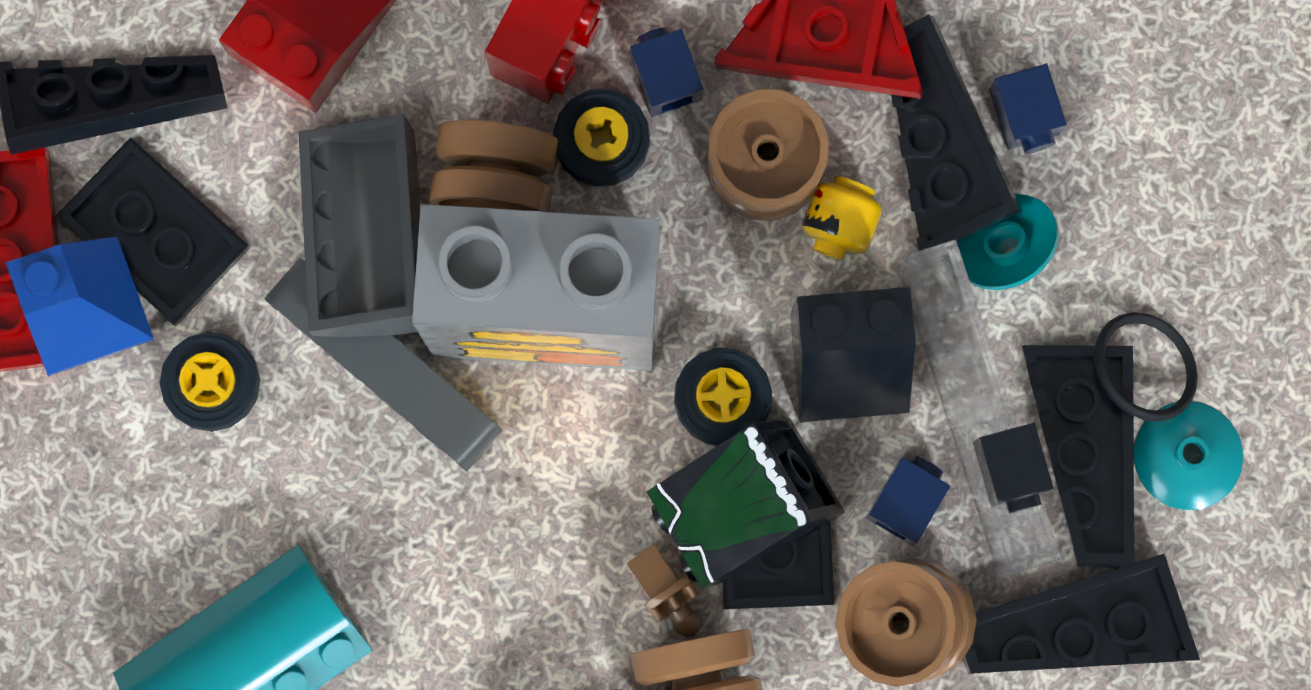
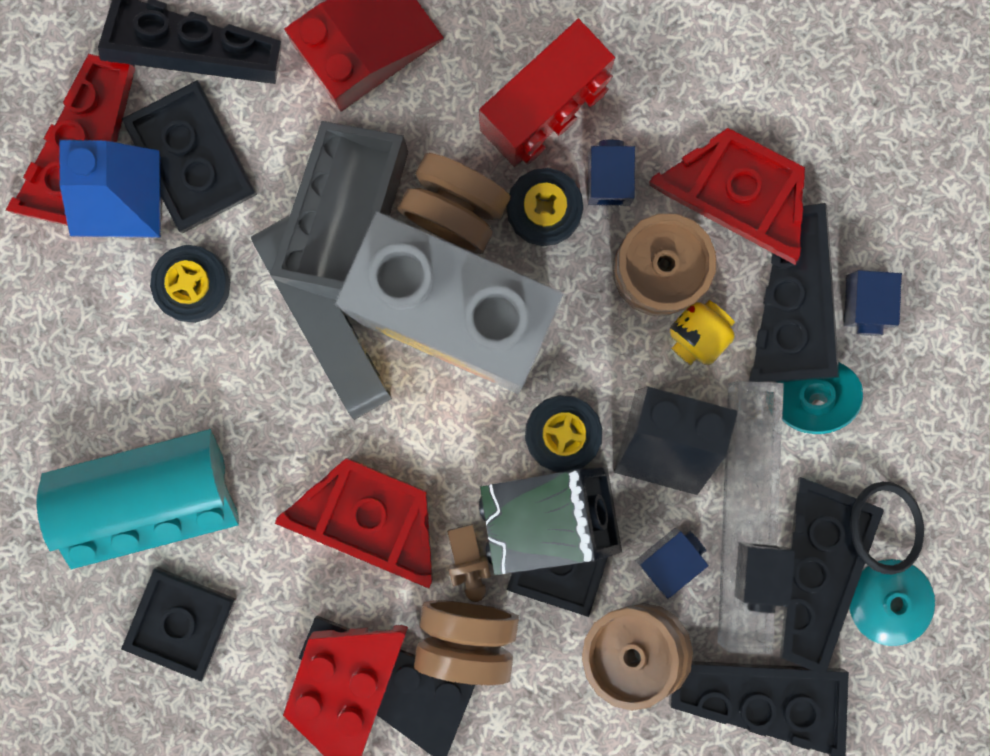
camera: 25 degrees right, 5 degrees up
(525, 584) = (367, 519): none -> red wing

